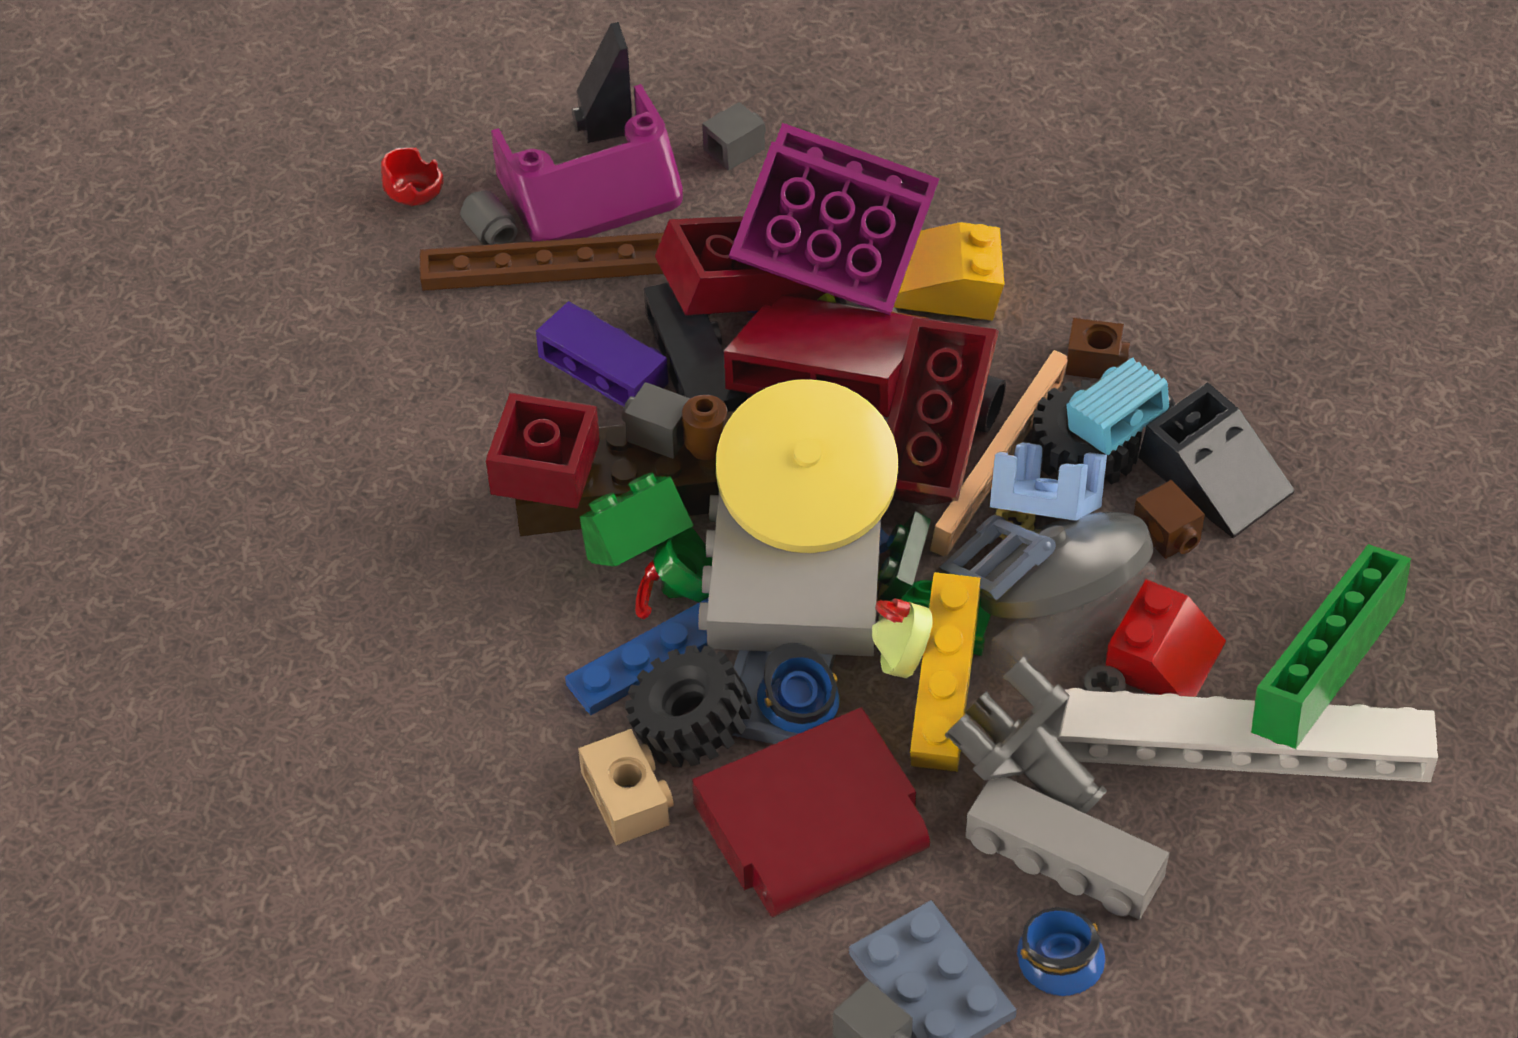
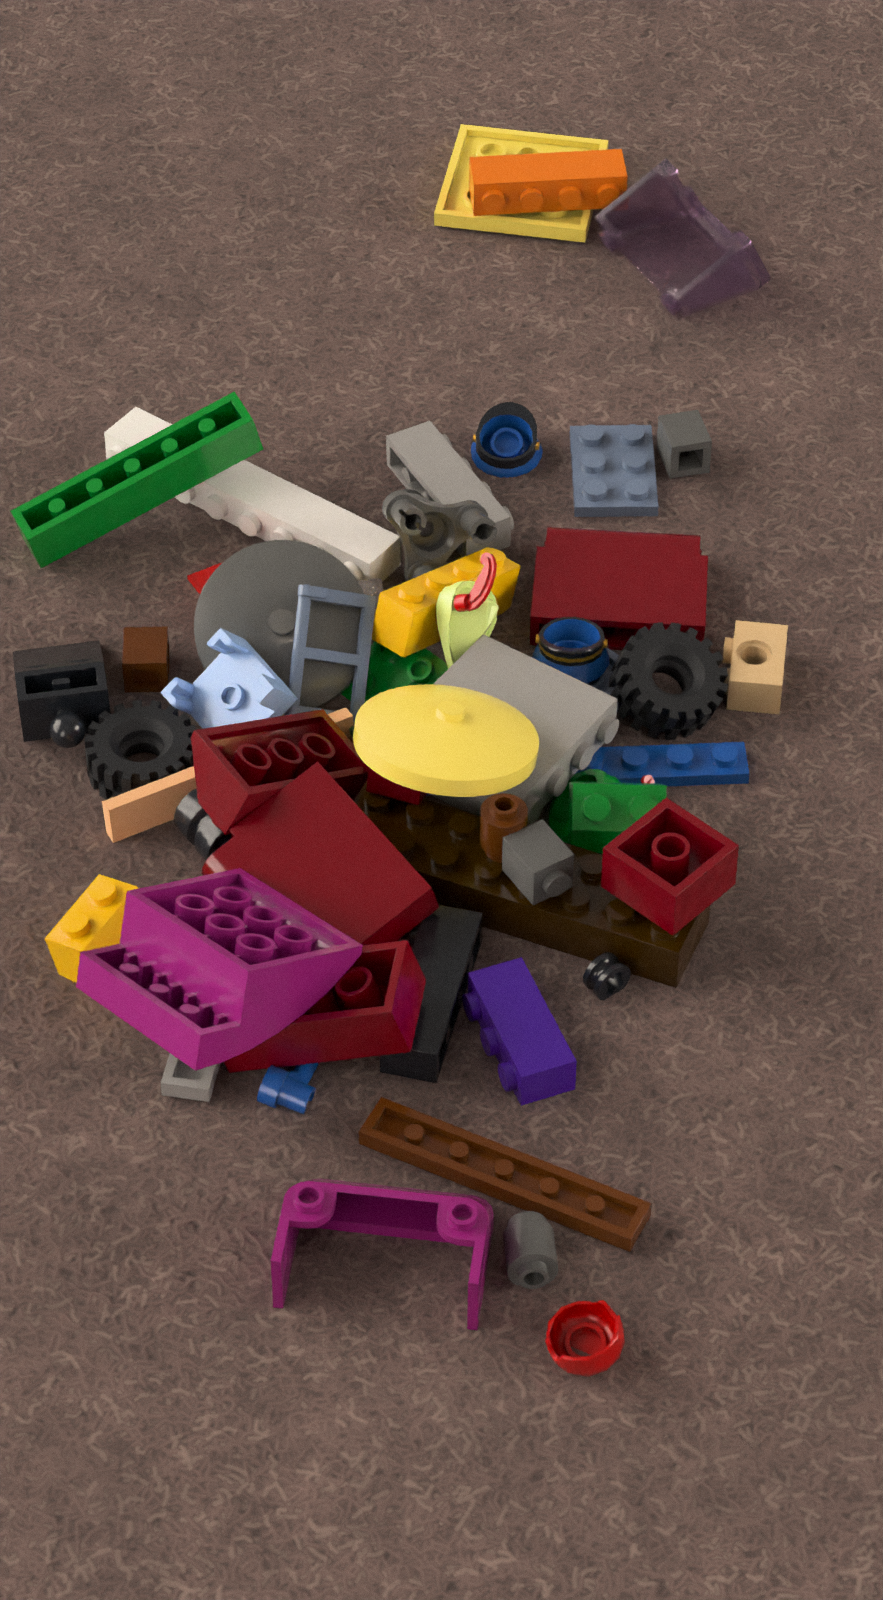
camera: 150 degrees left, 5 degrees down
(605, 90) = (307, 1295): black slope -> none
(733, 135) = (194, 1216): dark grey brick -> none
(1095, 348) = (60, 820): reddish brown brick -> none
(1117, 405) = (119, 707): medium azure brick -> none

